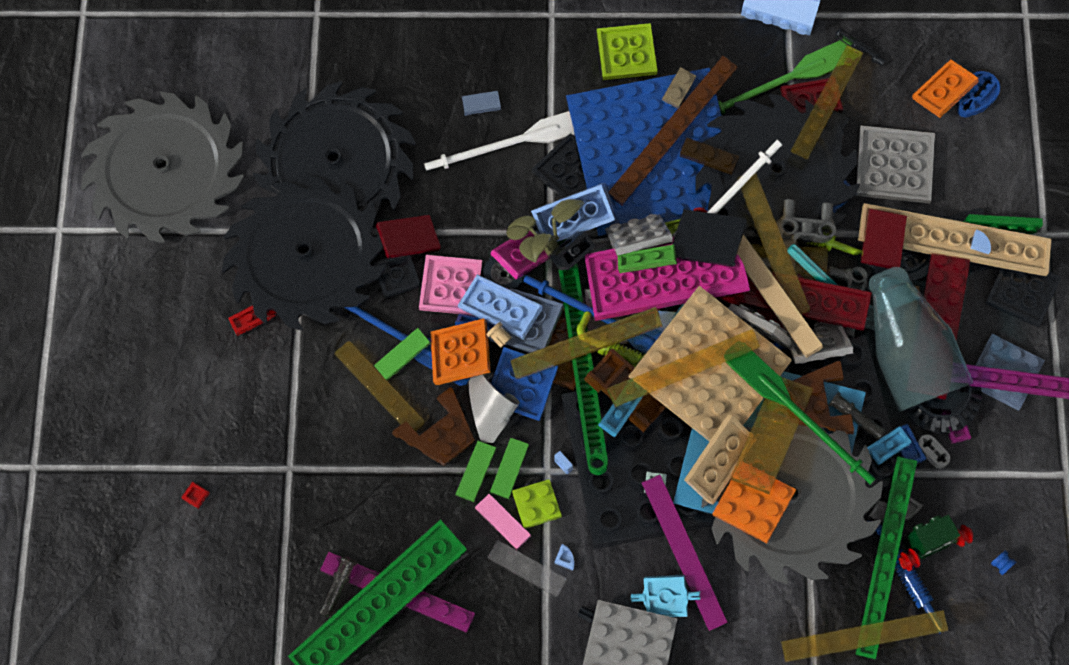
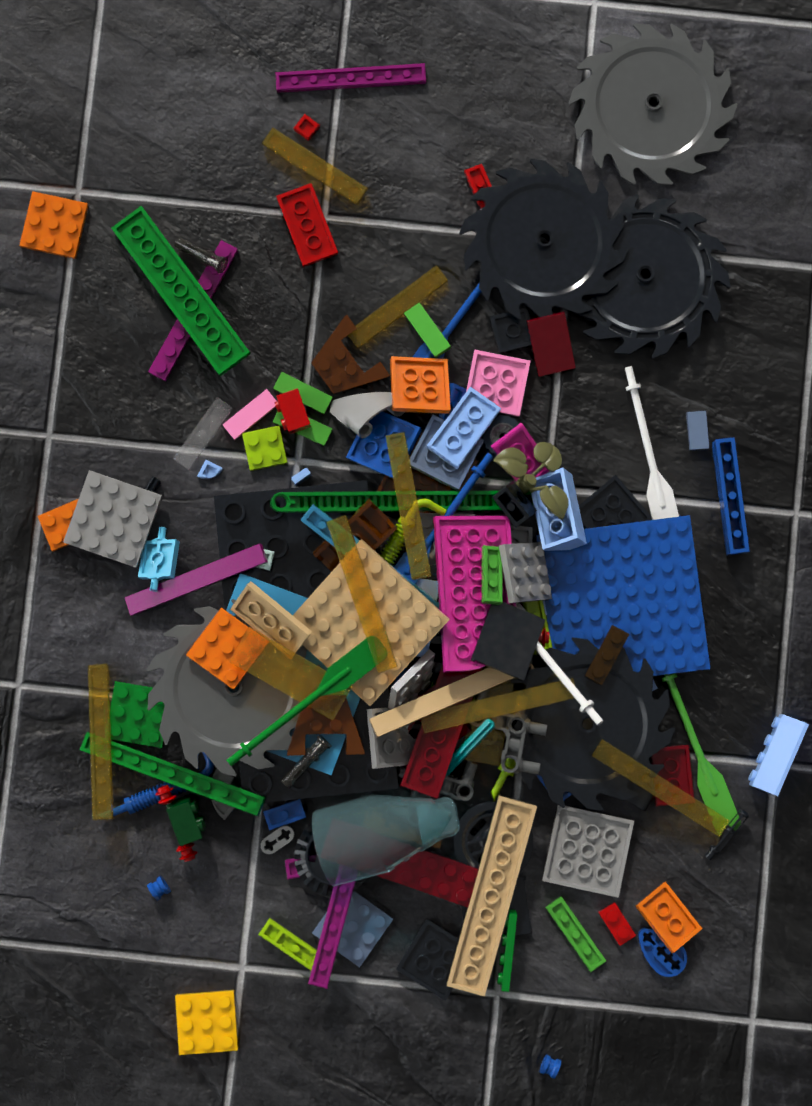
camera: 90 degrees right, 15 degrees up
(141, 457) = (350, 78): none -> magenta tile
(236, 482) = (314, 166): none -> clear yellow plate
(299, 483) = (307, 225): none -> red plate
(497, 474) = (293, 411): none -> red brick
(499, 334) = (430, 423): tan bush -> none
(543, 66) = (730, 496): none -> blue brick
(626, 51) = (743, 587): lime plate -> none
(672, 130) = (641, 622): reddish brown plate -> none
(679, 88) = (687, 633): dark tan plate -> none
(828, 603) = (131, 719): none -> green plate
(883, 239) = (494, 820): dark red tile -> none
(889, 445) = (275, 791): dark azure plate -> none
(958, 134) = (617, 923): none -> red plate
(974, 169) = (575, 934): none -> bright green tile
(980, 242) = (483, 920): light blue tile -> none
(1035, 426) = (288, 943): none -> lime plate

